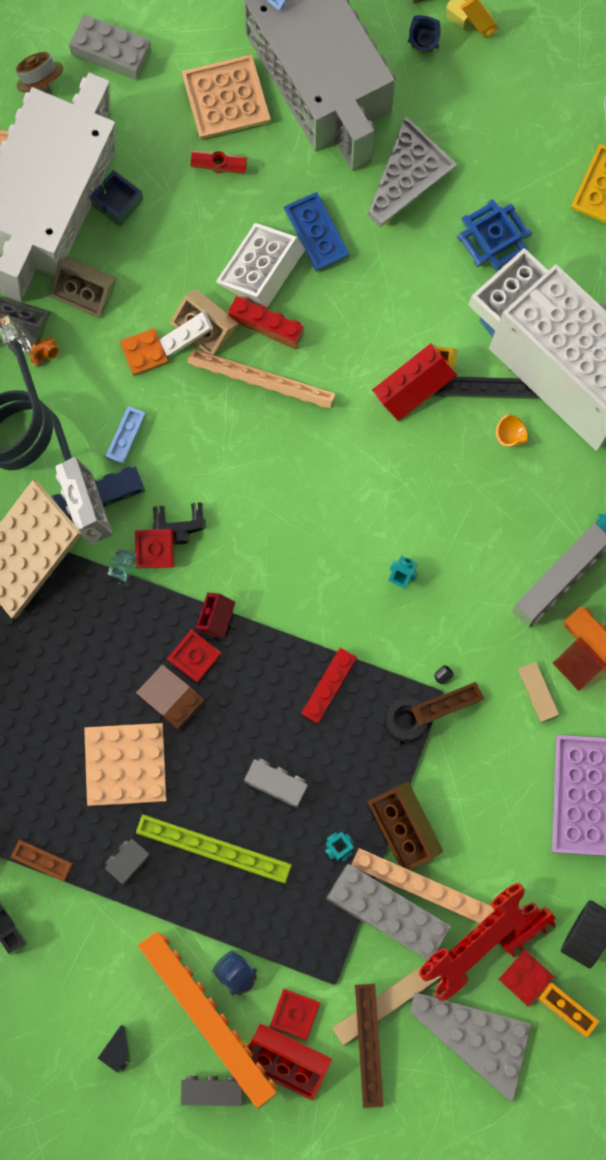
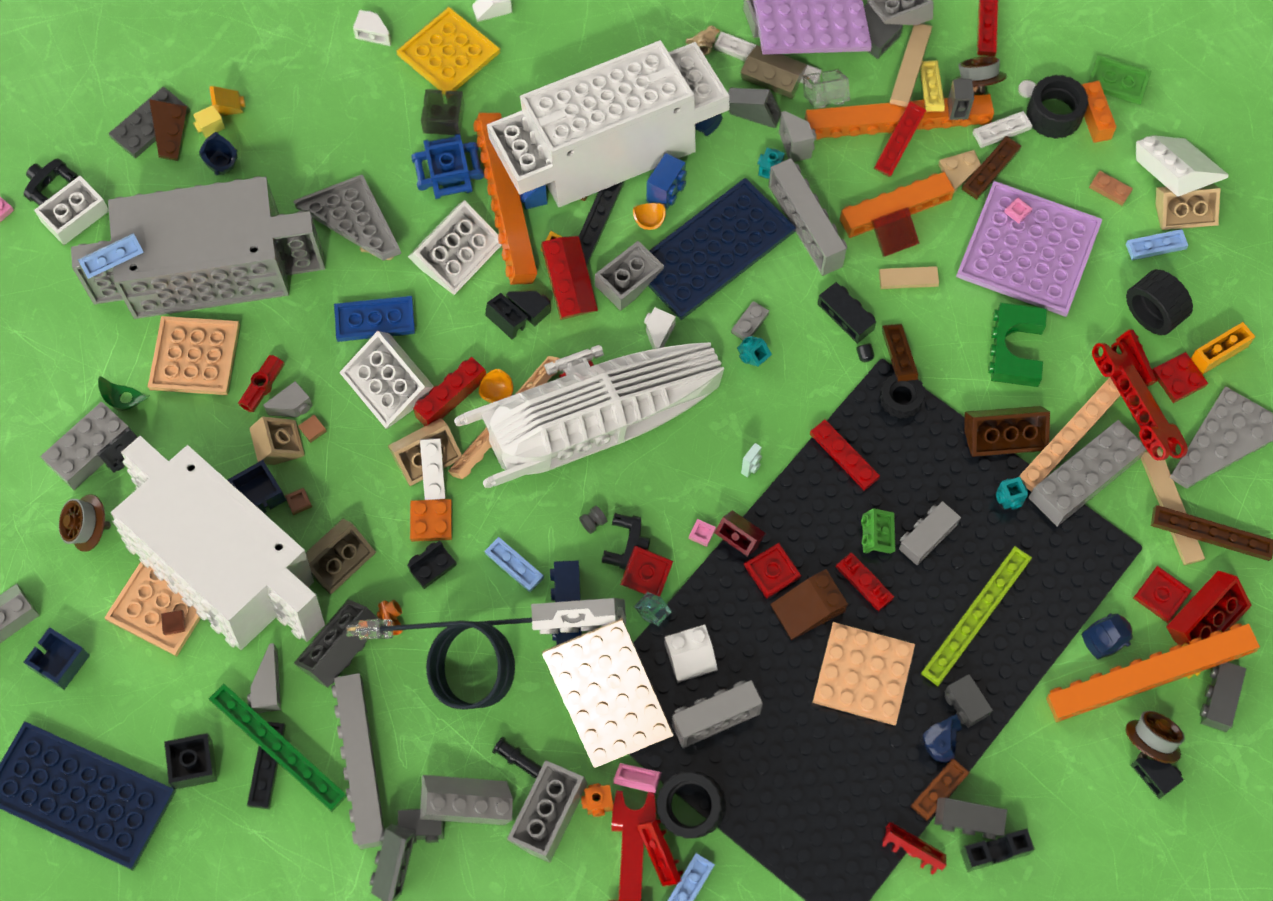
camera: 70 degrees left, 10 degrees down
(22, 893) = (970, 818): none -> dark grey brick
(39, 646) = (717, 713): none -> light grey brick
(82, 849) = (942, 739): none -> dark blue helmet
(91, 610) = (691, 653): none -> white slope
(102, 367) = (431, 564): none -> black bracket
(118, 75) = (111, 453): none -> black bracket
(123, 236) = (298, 501): none -> nougat tile
(145, 1036) = (1156, 737): none -> reddish brown piece
(164, 45) = (111, 394): none -> green piece
(170, 196) = (276, 440): none -> tan slope
(189, 486) = (593, 519): none -> dark grey wheel
(193, 221) = (312, 428): none -> nougat tile
(210, 193) = (289, 402): none -> light grey slope
(210, 583) = (702, 533): none -> bright pink plate
(211, 740) = (864, 581): none -> red plate
(262, 737) = (878, 531): none -> bright green bracket
(284, 359) = (496, 386): none -> light orange helmet
(290, 448) = (594, 406): none -> white piece
(290, 604) = (751, 460): none -> light aqua plate
(360, 342) = (505, 315): none -> black hinge
(378, 360) = (531, 304): none -> black slope
(396, 480) = (659, 327): none -> white slope
(412, 275) = (456, 248): none -> white slope
(437, 560) = (750, 321): none -> light grey plate
(439, 434) = (628, 275): none -> light grey slope
(458, 310) = (507, 208): none -> orange brick
(477, 645) = (847, 312): none -> black brick
(500, 502) = (717, 247): none -> dark blue plate
(524, 797) = (1006, 366): none -> green arch
(547, 213) = (441, 117): none -> clear smoke piece
(549, 434) = (666, 181): none -> blue brick

